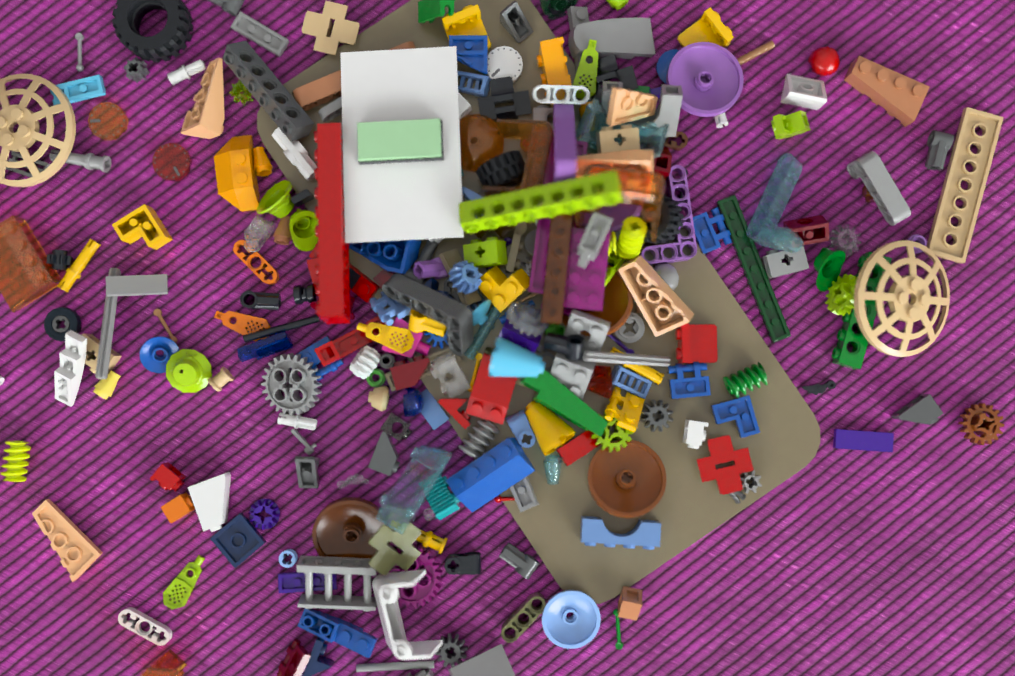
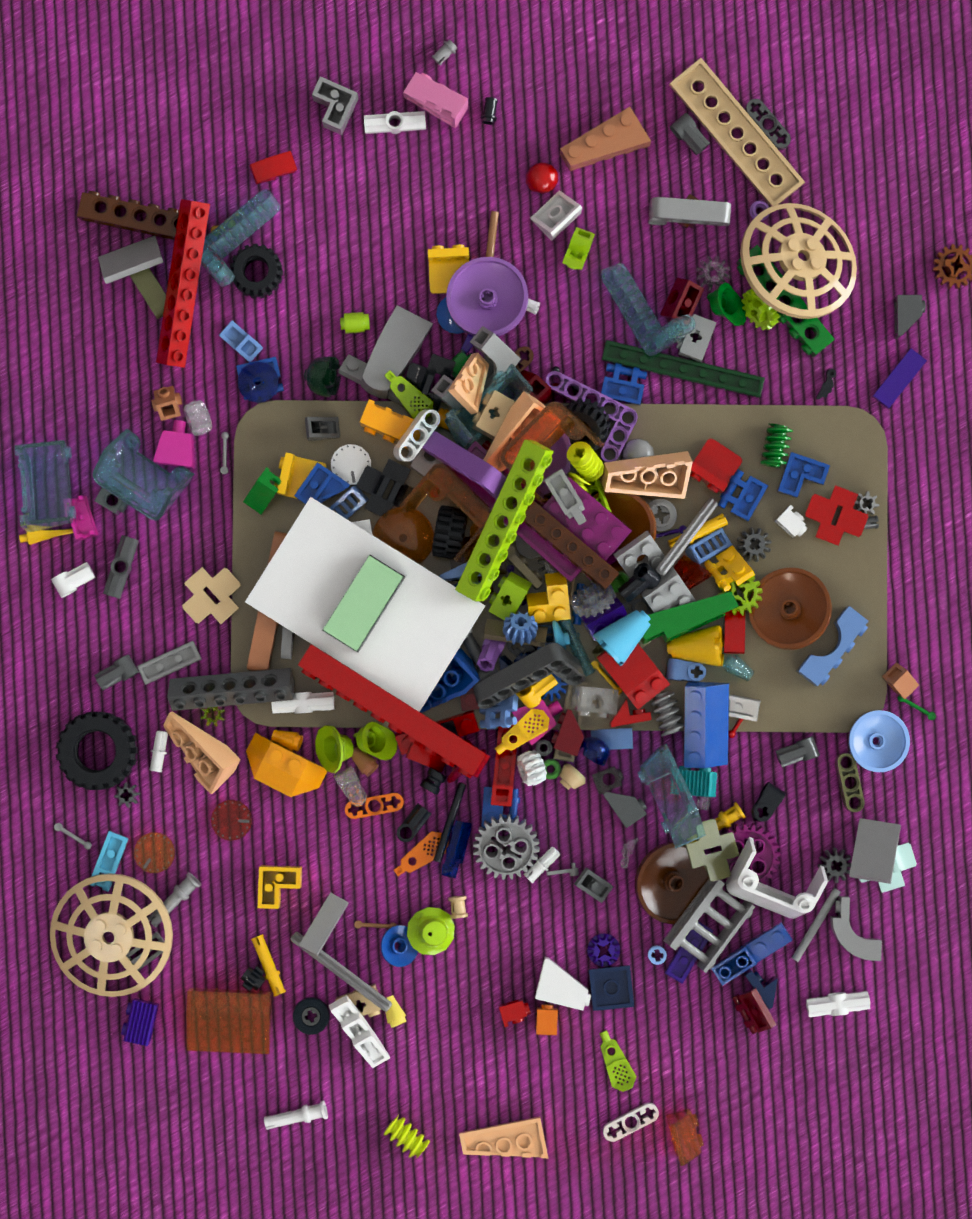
camera: 55 degrees left, 0 degrees up
(302, 198) = (347, 724): black tile -> none
(994, 198) = (781, 132): none -> dark grey beam

